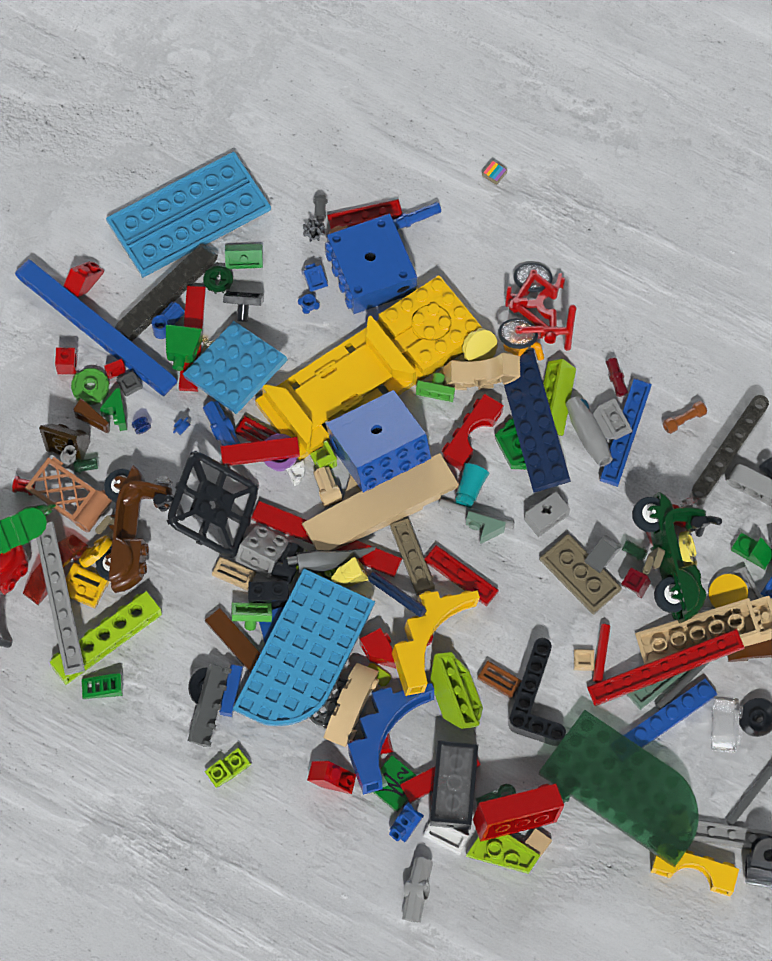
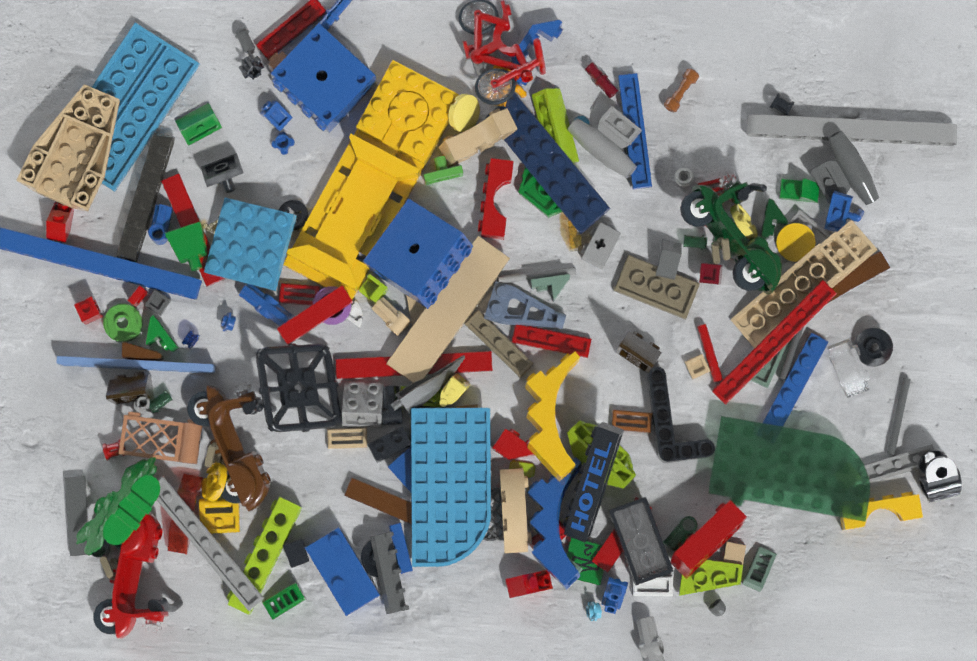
camera: 25 degrees left, 15 degrees up
(83, 424) = (136, 364): none -> medium blue tile
(125, 224) = (73, 151): none -> tan wedge
(135, 647) = (296, 553): none -> black panel
(168, 684) = (342, 571): none -> blue brick
(212, 275) = (179, 156): dark green gear -> none
(228, 768) = (433, 619): lime slope -> none
(251, 613) = (384, 470): bright green tile -> none
(294, 366) = (296, 206): none -> black gear
(379, 830) = (593, 611): none -> medium azure plate
(397, 594) = (504, 389): dark blue axle -> none
(431, 520) = (499, 303): none -> sand blue plate
(436, 708) = (593, 481): none -> black brick
(470, 484) = (519, 252): teal plant -> none
(497, 885) = (717, 608): none -> dark grey hinge
(525, 496) = (574, 238): none -> clear yellow plate
(534, 617) = (638, 351): none -> dark brown slope
(544, 876) = (752, 583): none -> sand green slope
(589, 314) = (548, 30): none -> blue slope
(650, 486) = (690, 177): none -> white plate
(717, 560) = (774, 215): none -> dark green slope
(733, 442) = (739, 95): clear smoke beam -> none

